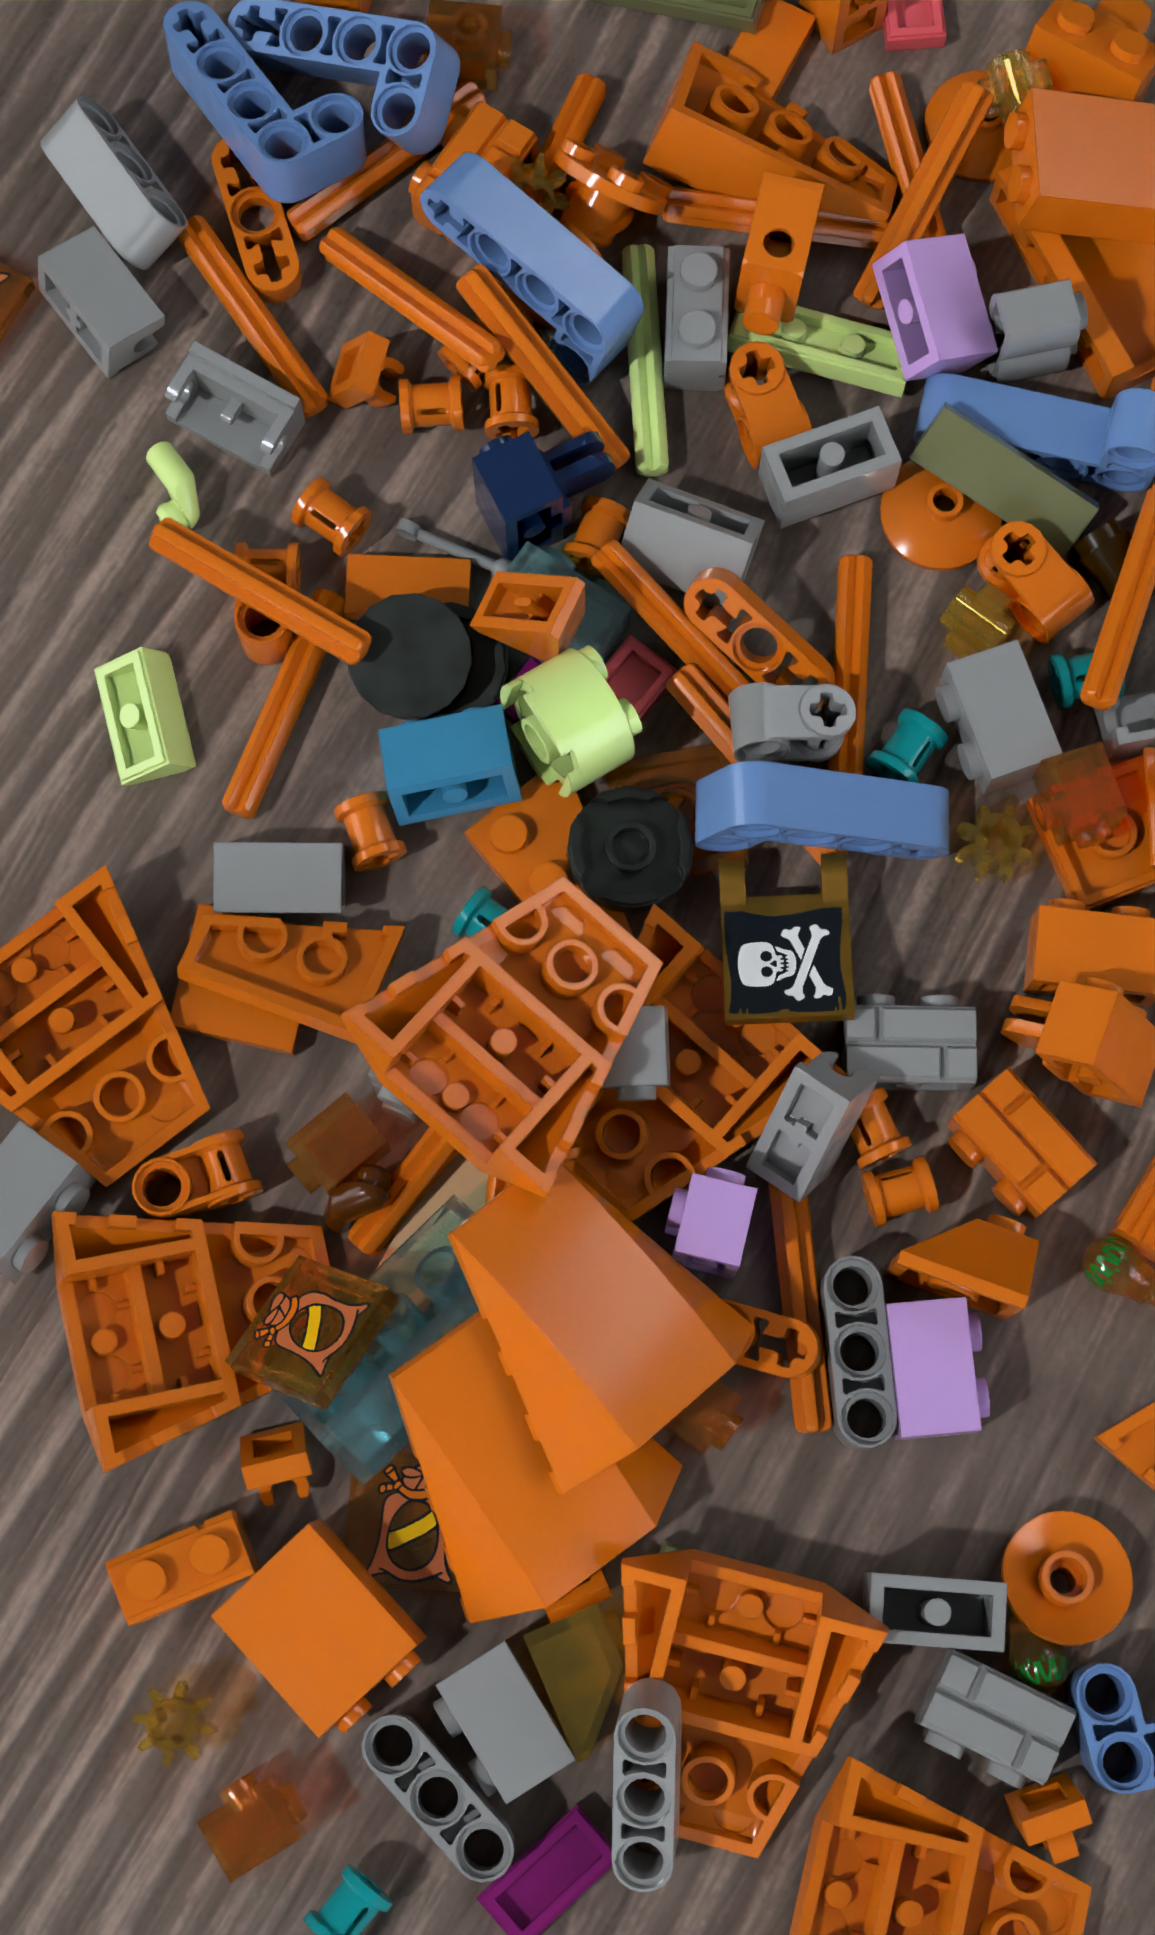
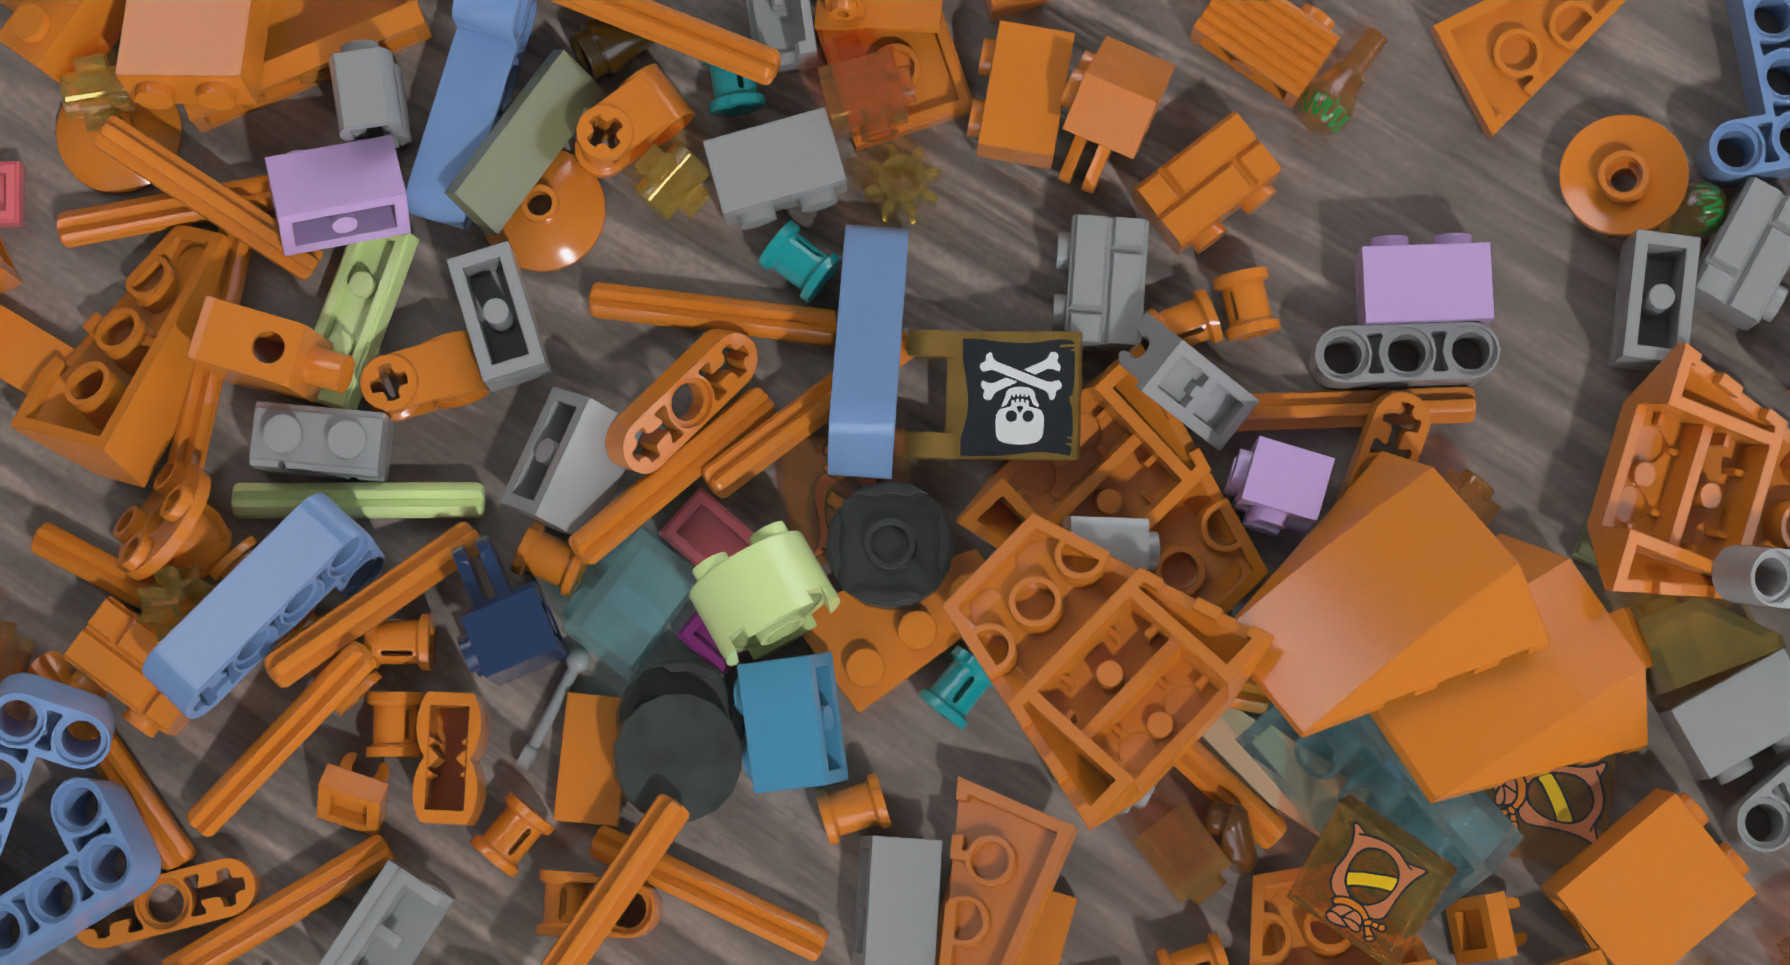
camera: 85 degrees left, 5 degrees up
(386, 451) = (453, 739): none -> orange brick
(532, 612) = (646, 630): orange slope -> none
(786, 723) = (775, 385): light grey piece -> none
(977, 1260) = (1324, 237): orange slope -> none

